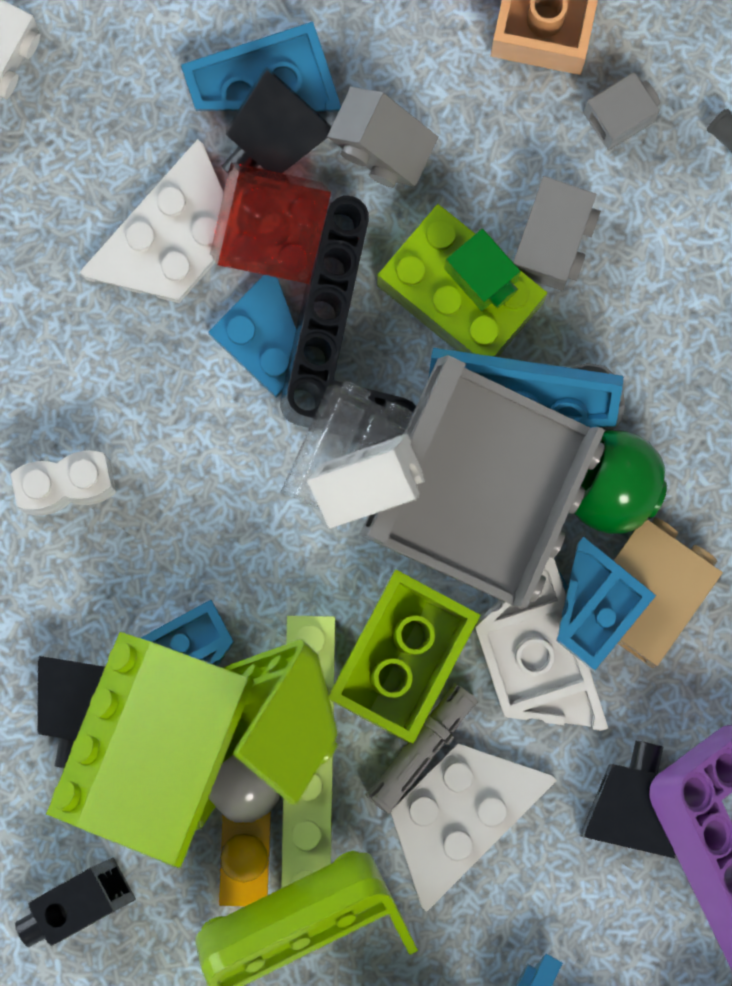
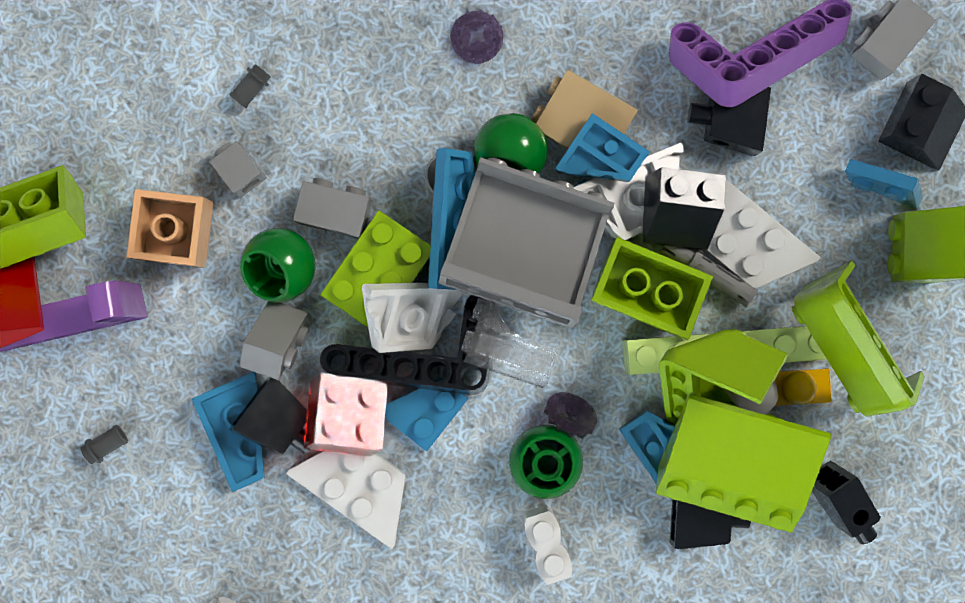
camera: 90 degrees left, 5 degrees up
(209, 471) = (525, 478): none -> green wheel
(249, 540) = (574, 407): none -> clear purple gear
(367, 481) = (538, 325): white hinge -> none
(398, 318) = (407, 315): none -> white wing
(483, 151) = (277, 265): none -> green wheel
(483, 271) = (370, 255): green brick -> none
(512, 713) = (682, 207): none -> black slope

